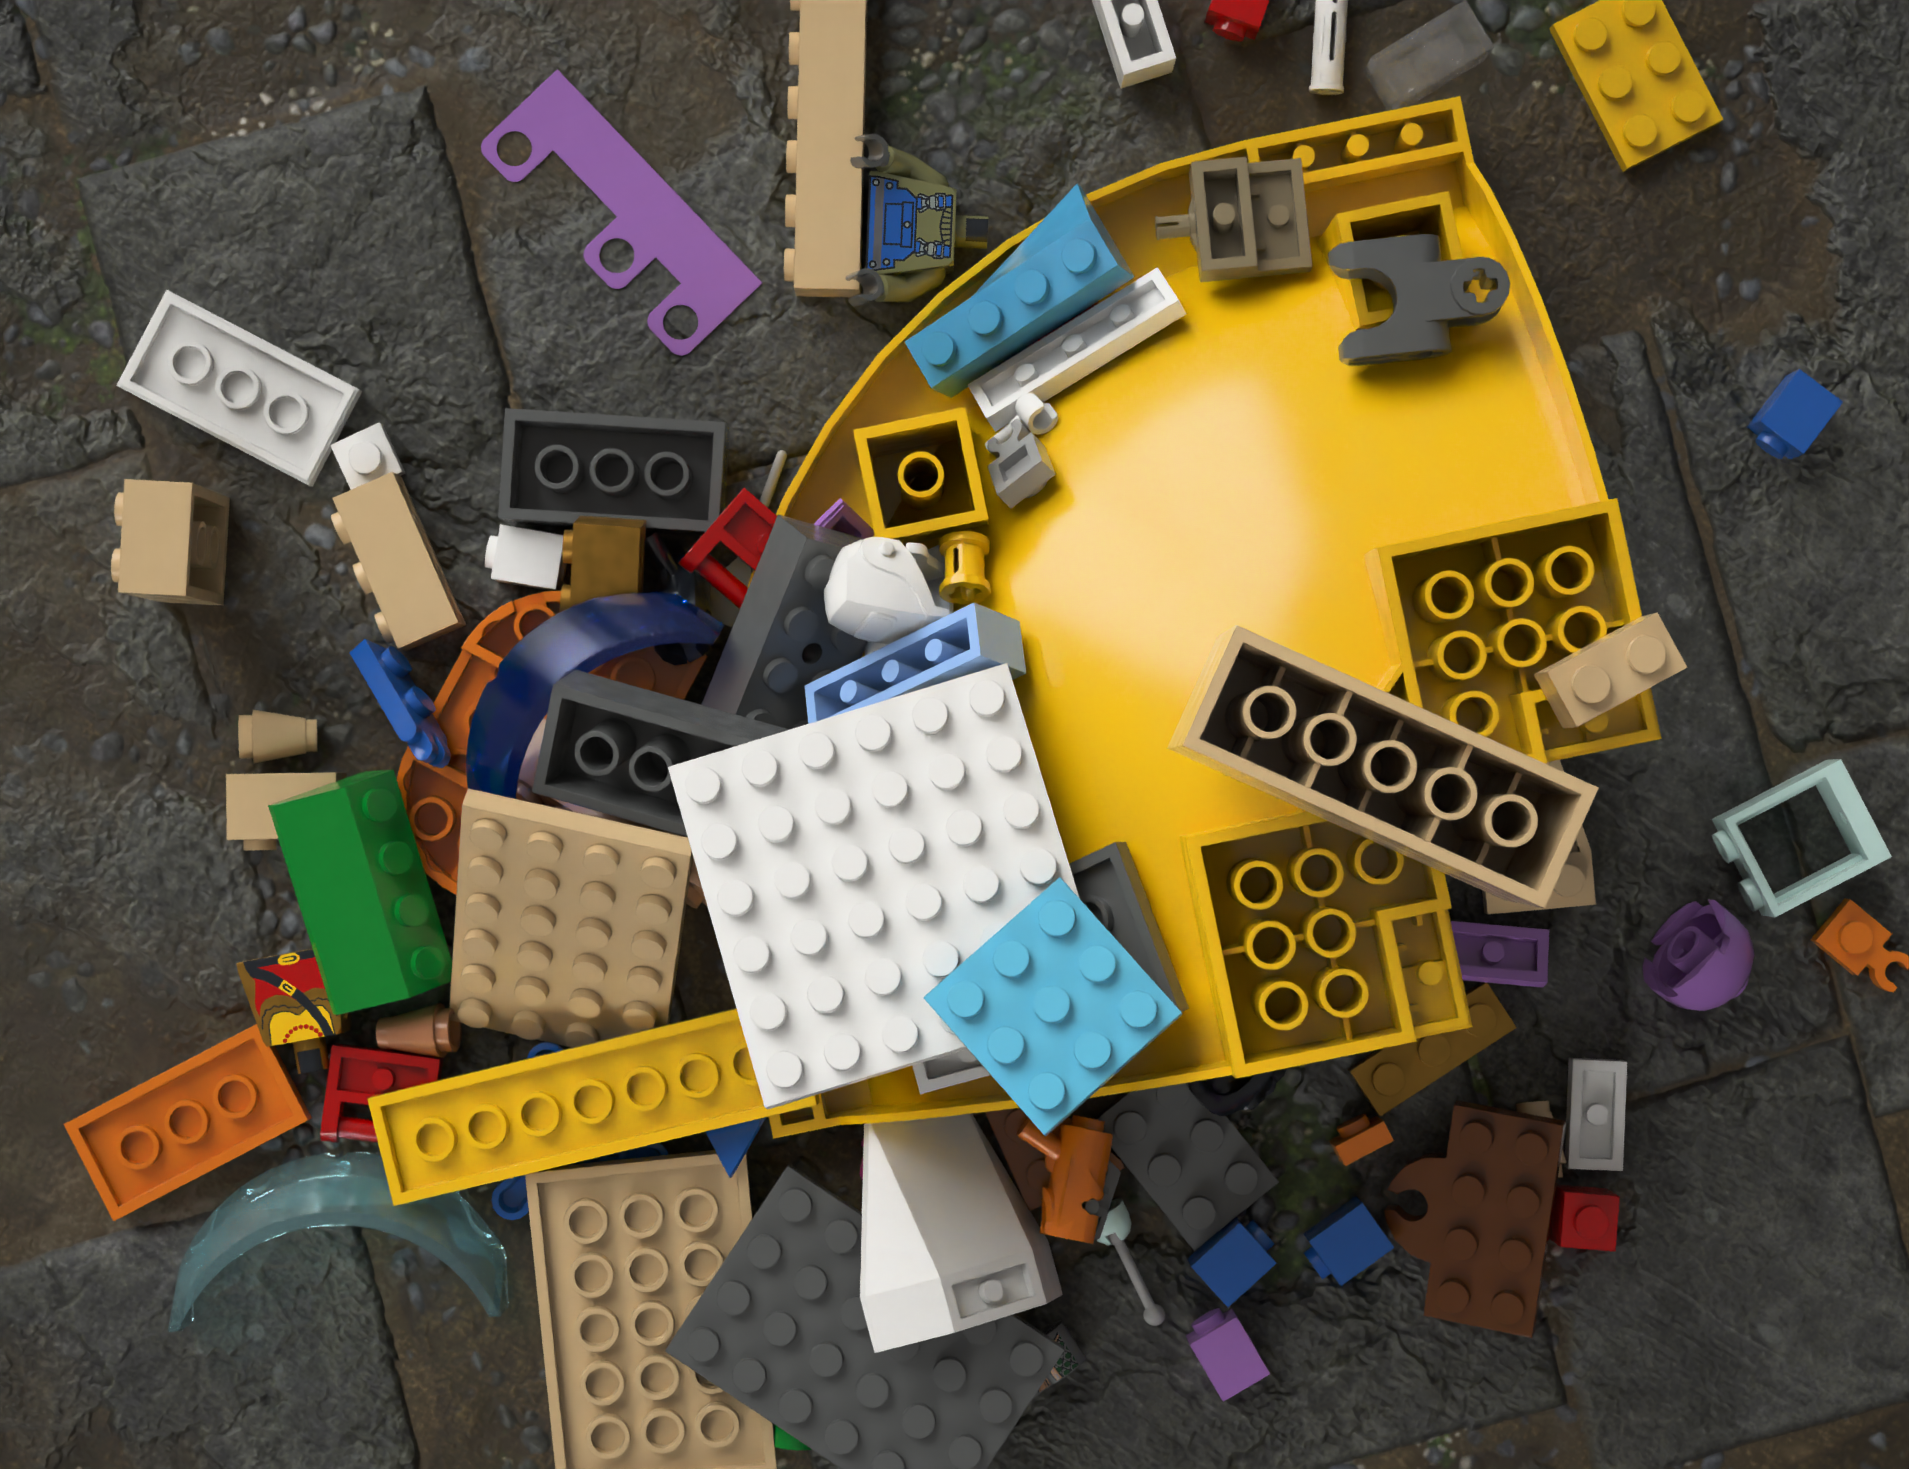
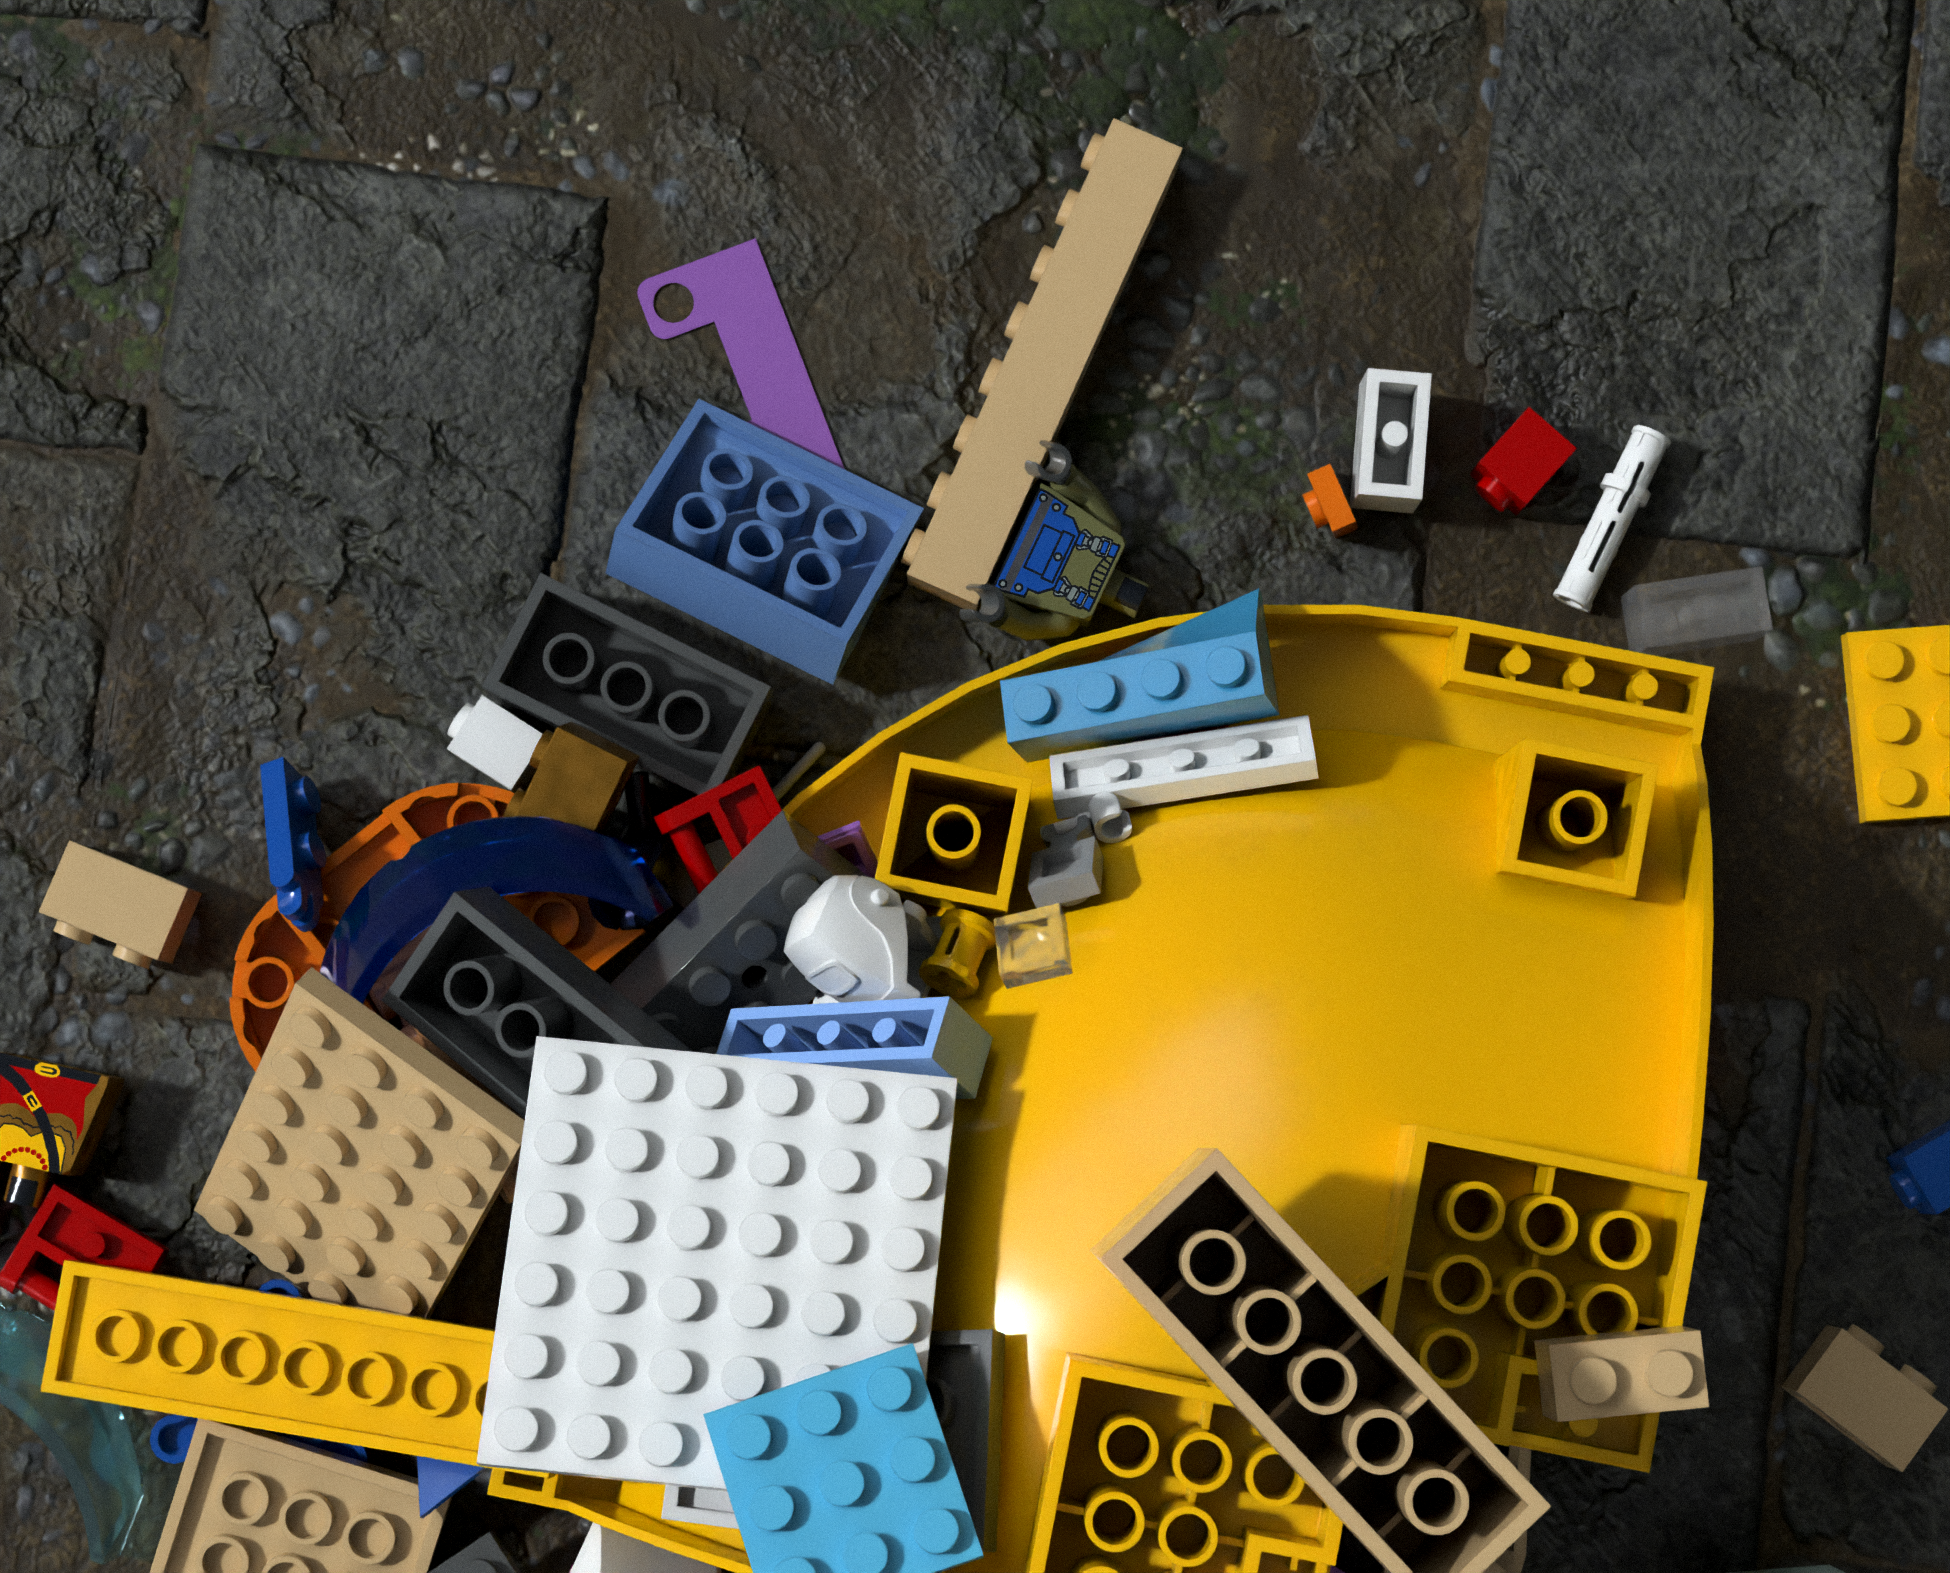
camera: 25 degrees right, 5 degrees down
(171, 542) = (119, 566): tan brick -> none
(239, 388) = (269, 434): white tile -> none
(275, 736) = (141, 821): tan cone -> none
(362, 891) = (158, 1030): green slope -> none
(367, 456) = (373, 566): white plate -> none
(396, 562) = (354, 689): tan brick -> none
(420, 1031) = (157, 1210): nougat cone -> none
(668, 309) = (763, 540): none -> medium blue slope
(1020, 537) = (1032, 946): none -> clear plate
(1102, 91) = (1328, 503): none -> orange plate
(1244, 219) = (1424, 702): dark tan plate -> none
(1424, 295) = (1585, 868): dark grey piece -> none
(1804, 617) = (1865, 1396): none -> tan brick

